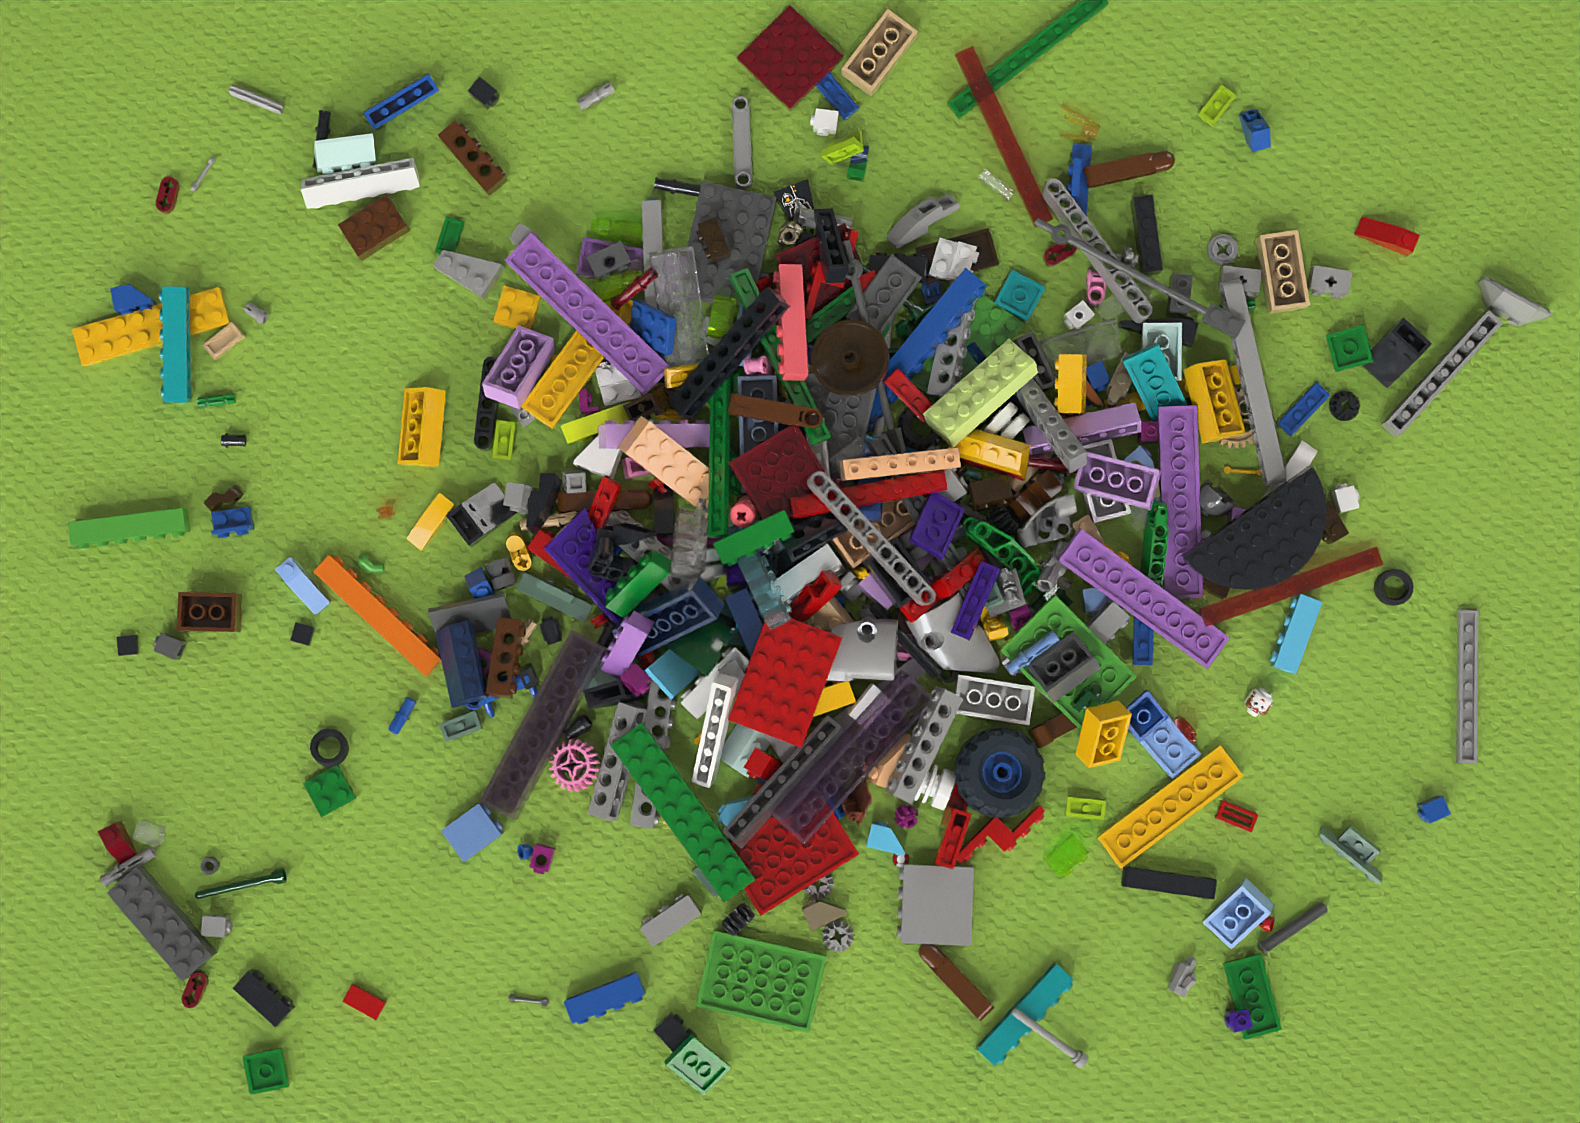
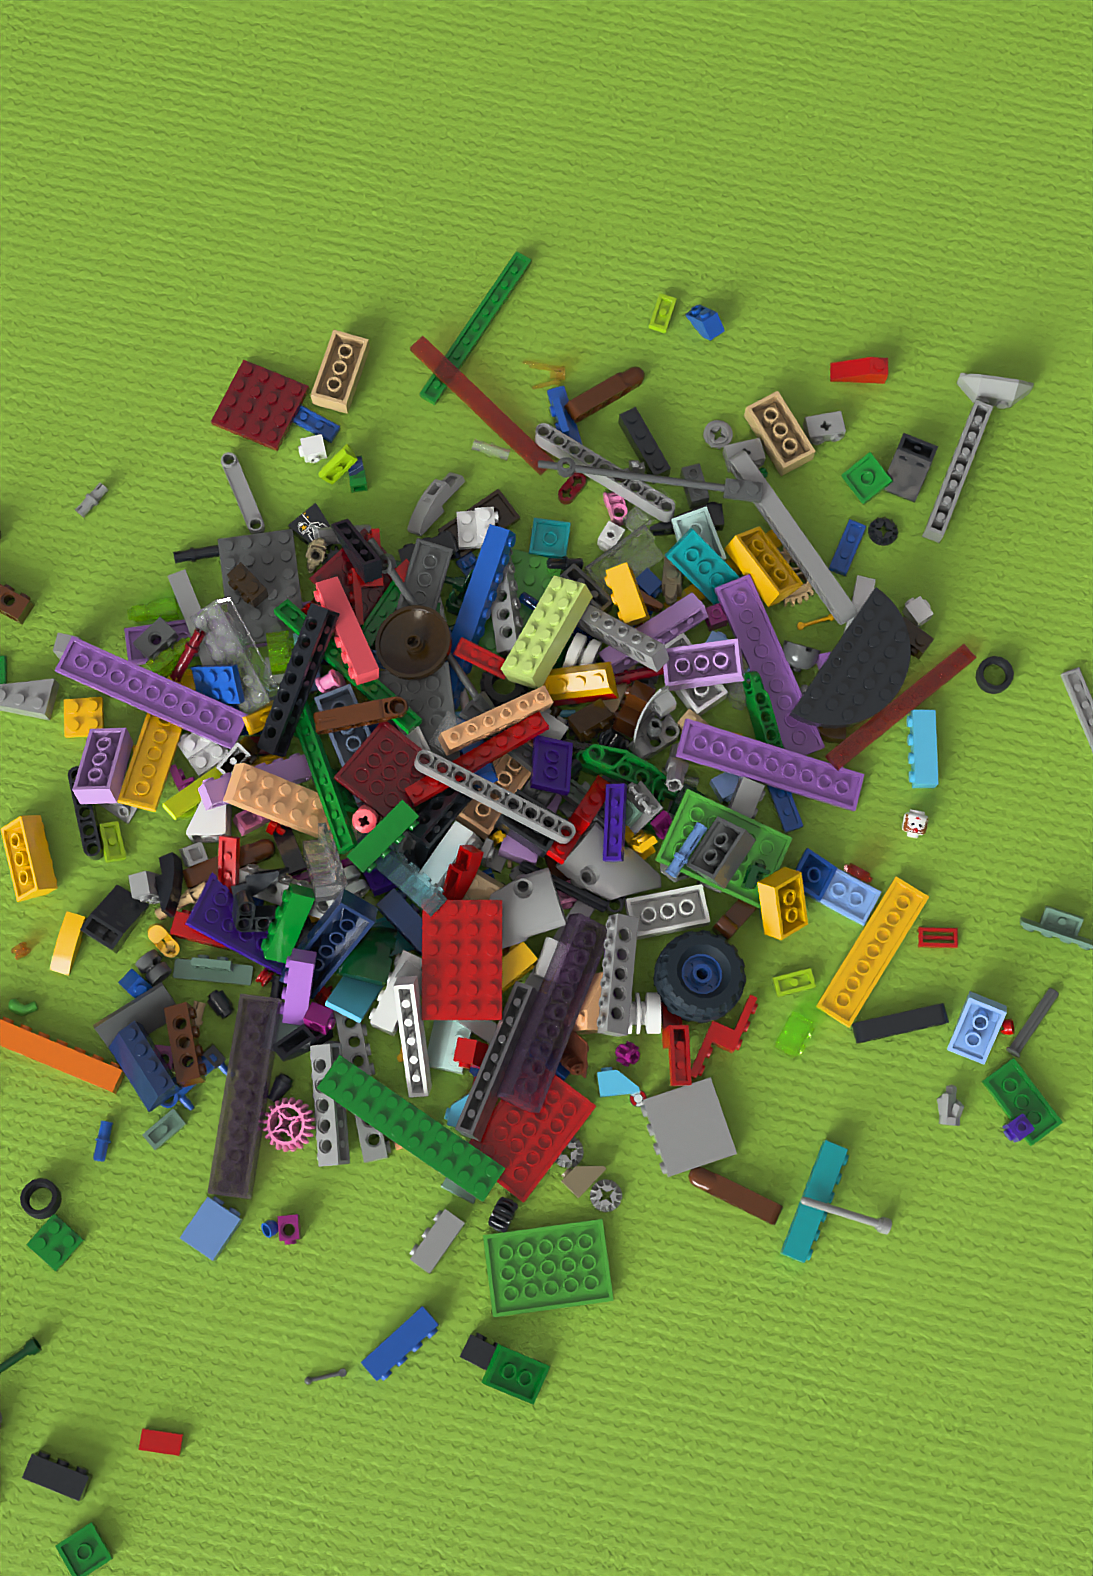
camera: 25 degrees left, 10 degrees down
(1024, 326) = (564, 563): none -> black axle

